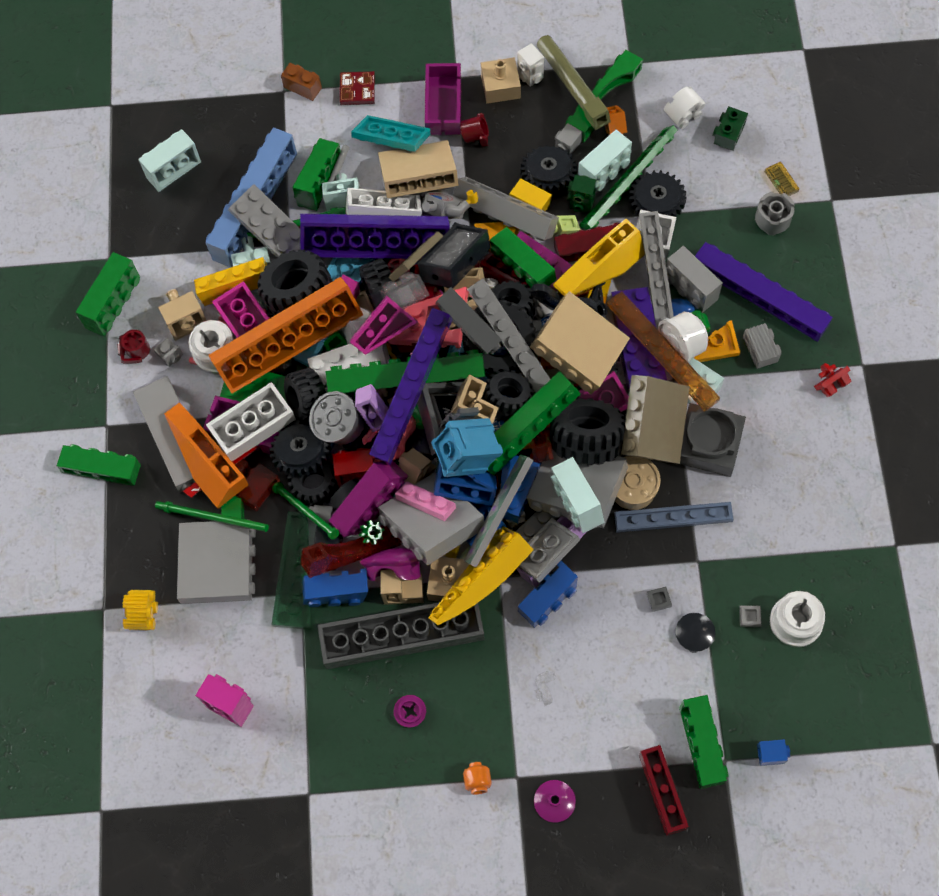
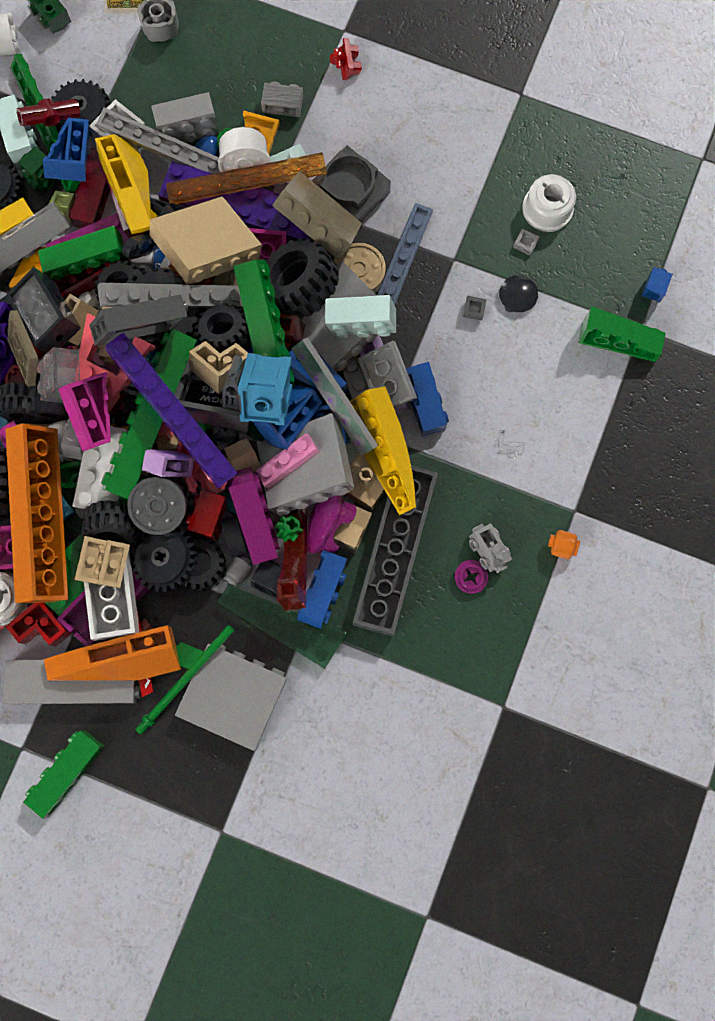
camera: 70 degrees left, 10 degrees up
(139, 610) = (246, 793): yellow brick -> none
(206, 382) = (38, 620): none -> red brick
(225, 700) = (385, 745): dark pink brick -> none
(259, 488) = (174, 615): clear red brick -> none
(270, 401) = (102, 562): none -> tan slope
(279, 488) = (267, 566): green bar -> none
(437, 721) = (492, 551): none -> light grey brick
(554, 812) = (604, 494): magenta dish -> none
(608, 208) = (70, 152): none -> blue wedge
(631, 174) = (48, 112): none -> dark red piece
(663, 790) = (649, 389): dark red brick -> none
(765, 293) = (234, 67): dark purple brick -> none

